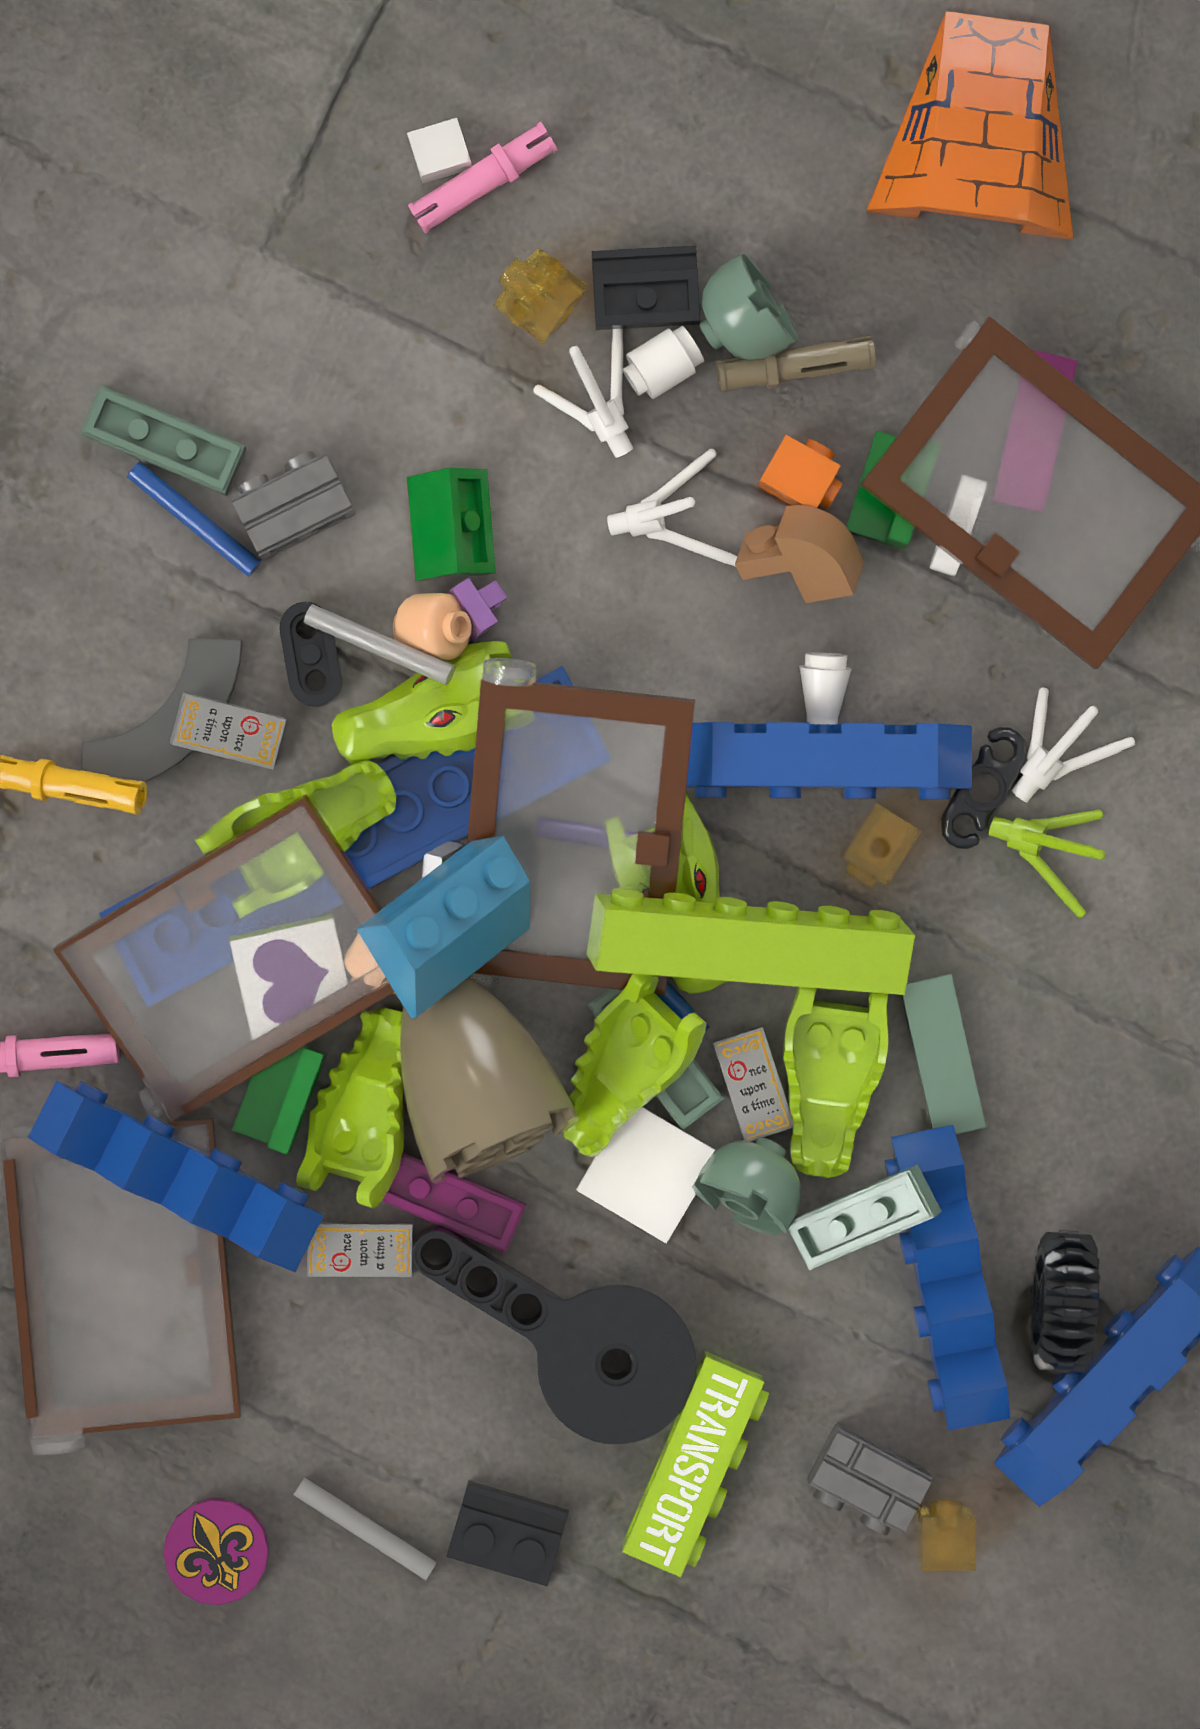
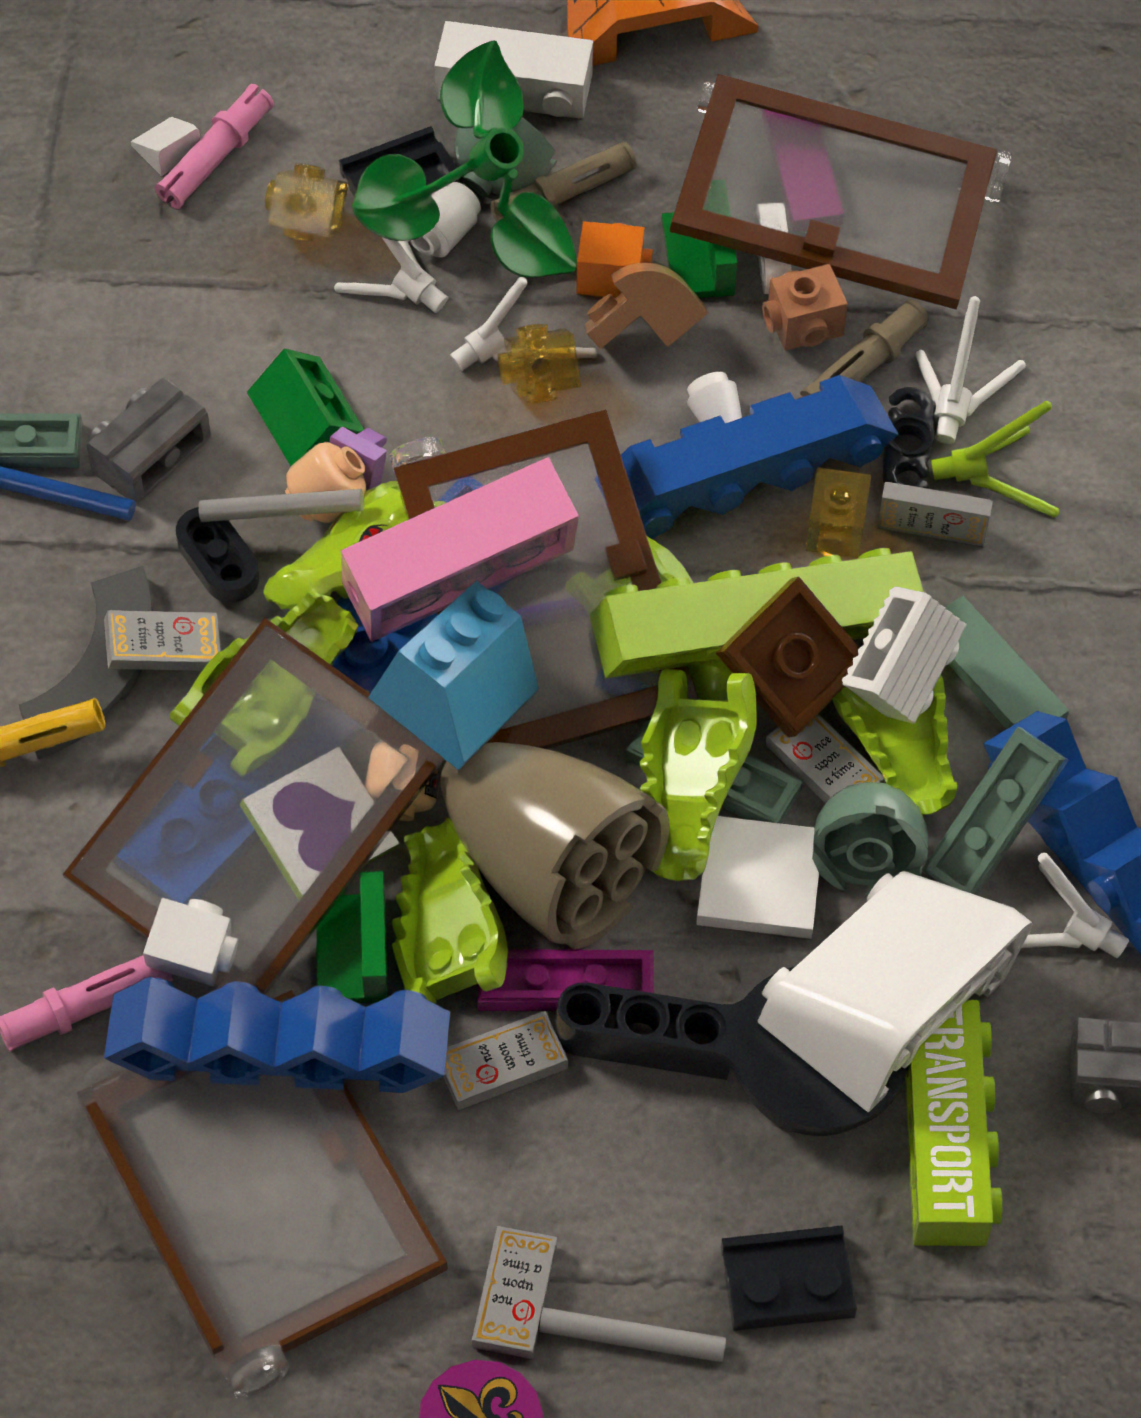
camera: 25 degrees left, 30 degrees down
(136, 1061) = (191, 941): none -> white brick
(287, 1455) = (514, 1292): none -> light grey tile
(496, 805) = (444, 551): none -> bright pink brick
(680, 573) = (558, 365): none -> clear yellow brick
(701, 1342) = (890, 980): none -> white windscreen
(735, 408) = (486, 97): none -> green plant
(755, 1006) = (793, 655): none -> reddish brown tile
(804, 206) = (548, 68): none -> white brick
(853, 1045) = (905, 654): none -> white brick
(894, 1331) = (1085, 925): none -> white plant
(966, 881) = (934, 513): none -> light grey tile
(969, 602) = (805, 307): none -> nougat brick
(996, 677) = (879, 345): none -> dark tan pin

